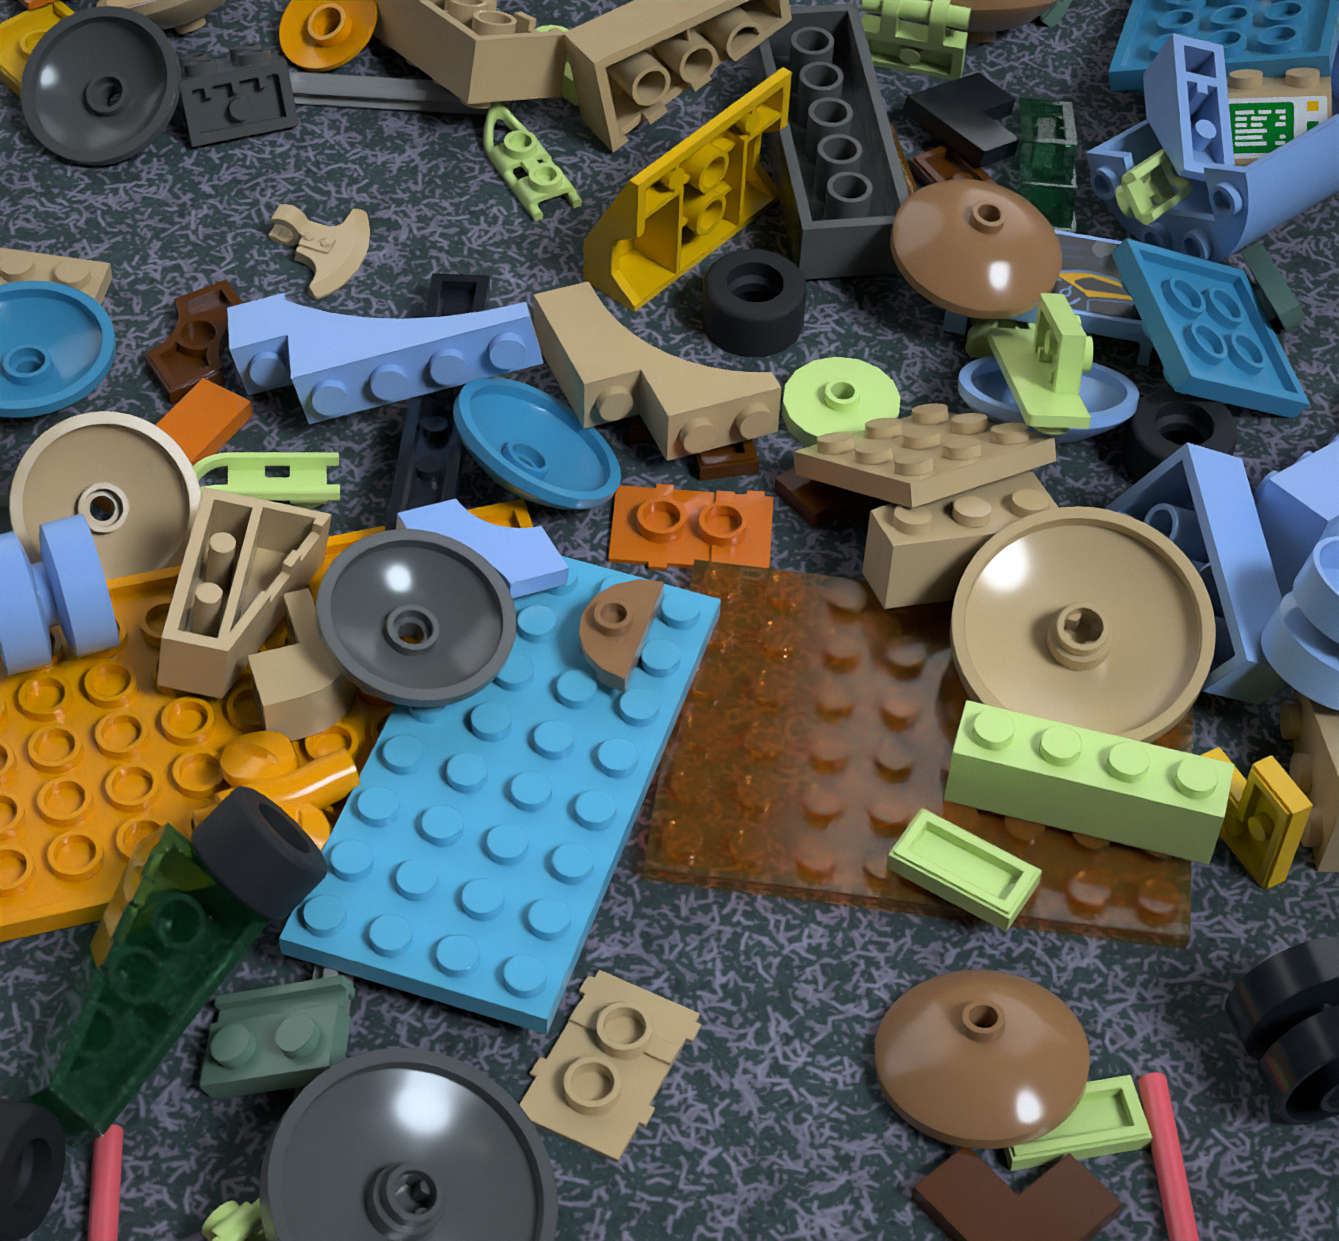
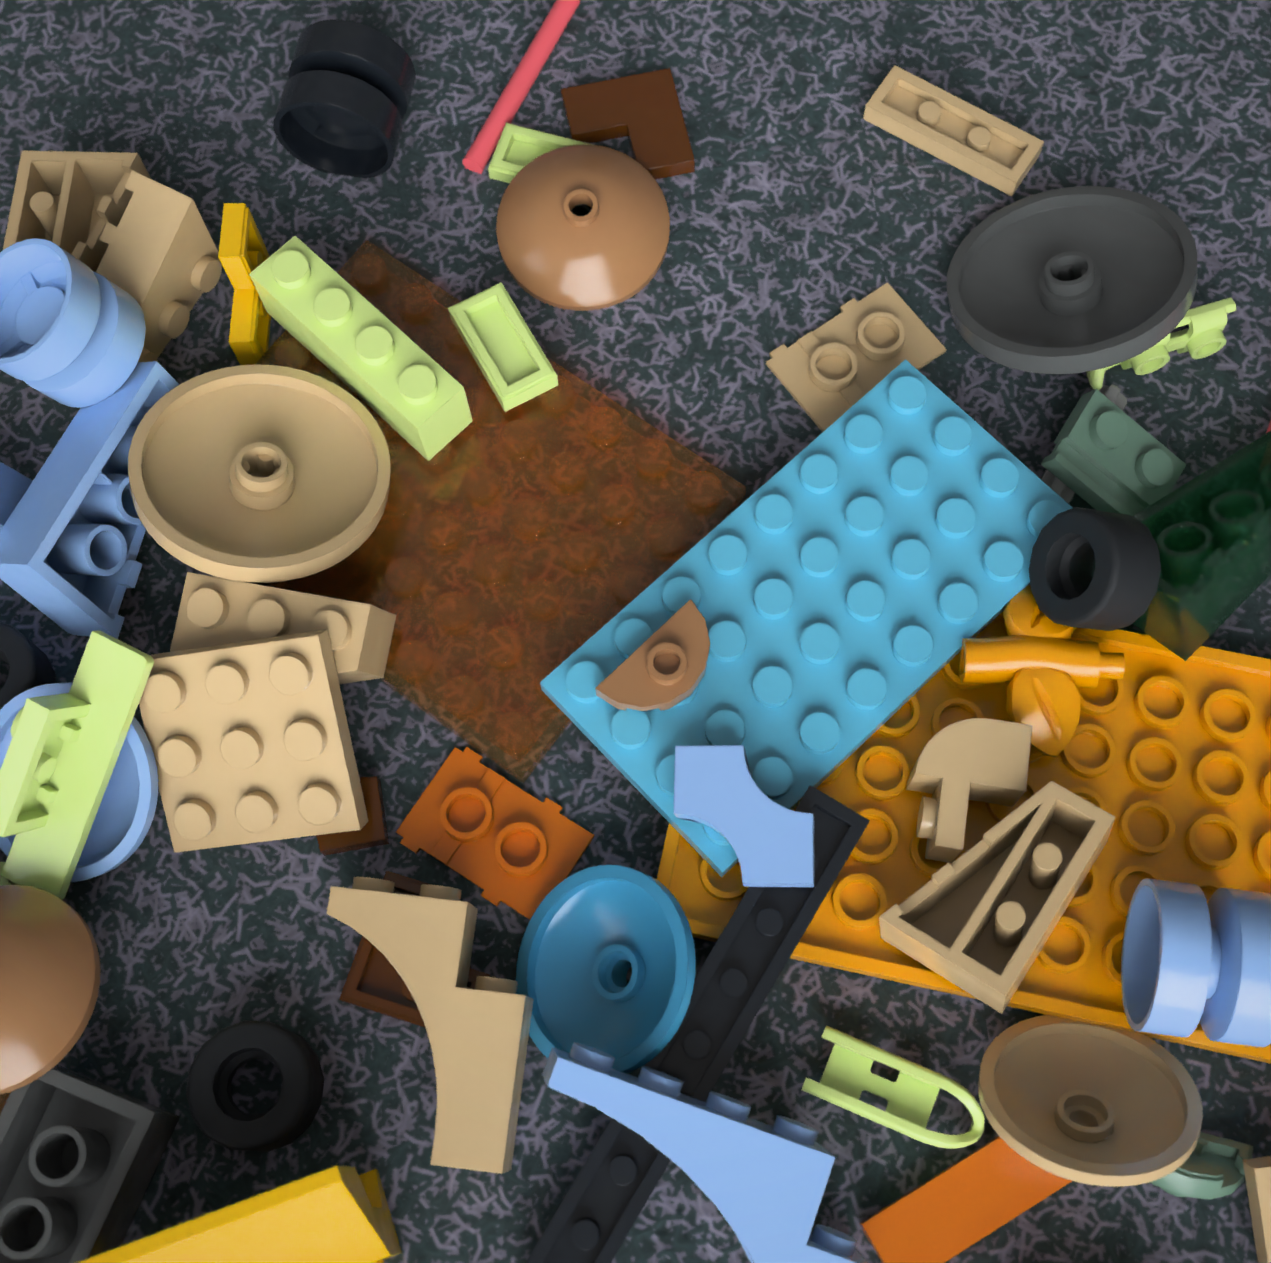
camera: 145 degrees left, 20 degrees up
(417, 589) = (850, 699): dark grey dish -> none
(836, 397) = (281, 933): yellowish green plate -> none

